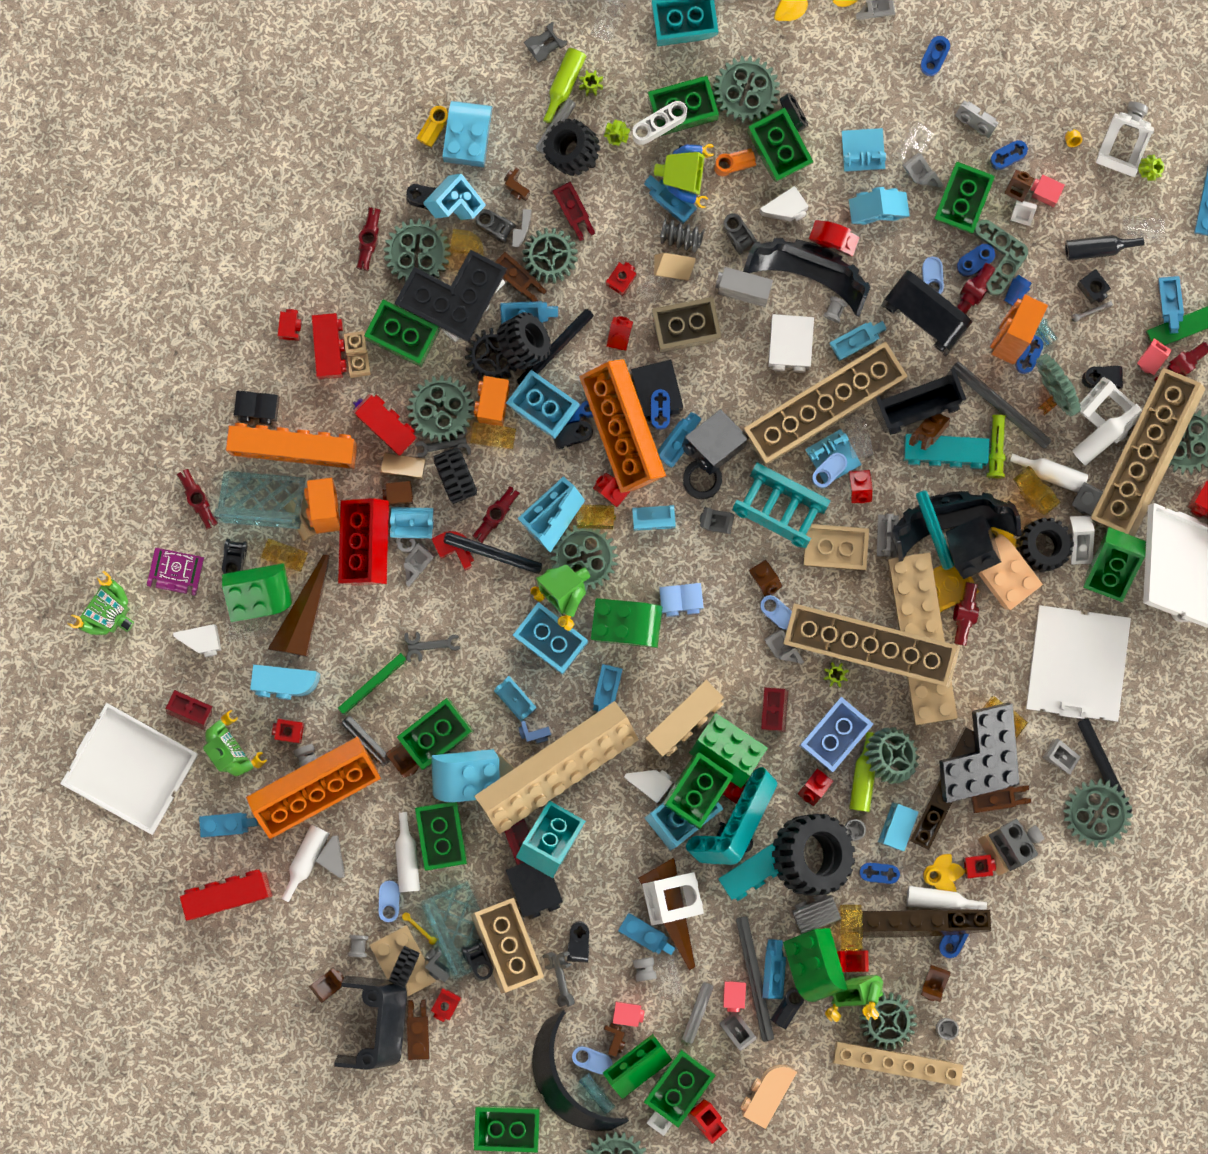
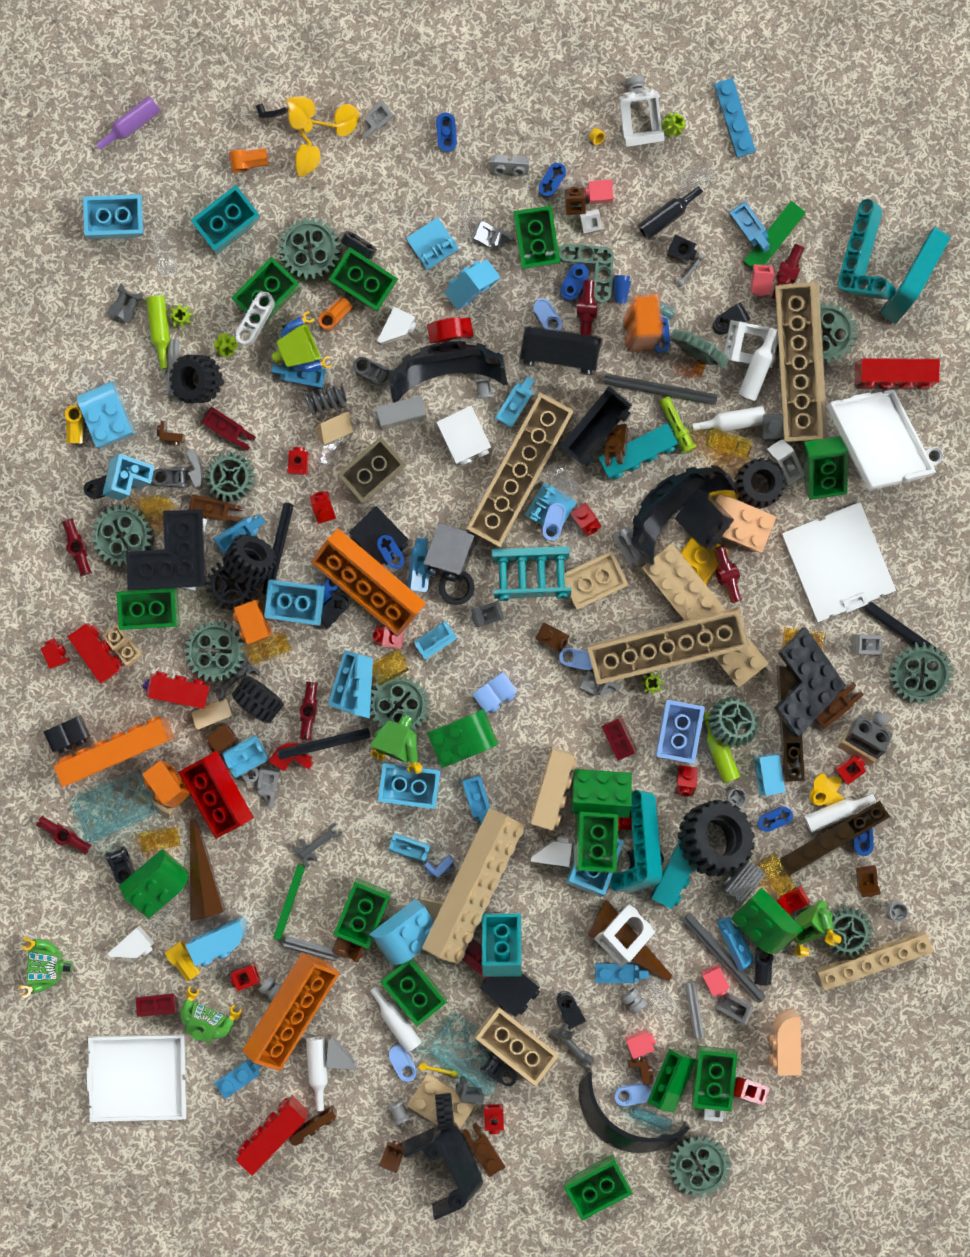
camera: 30 degrees left, 5 degrees up
(175, 571) = (81, 901): magenta piece -> none
(238, 678) = (180, 957): none -> yellow piece
(268, 911) = (312, 1126): none -> reddish brown hinge
(935, 530) = (665, 521): teal axle -> none

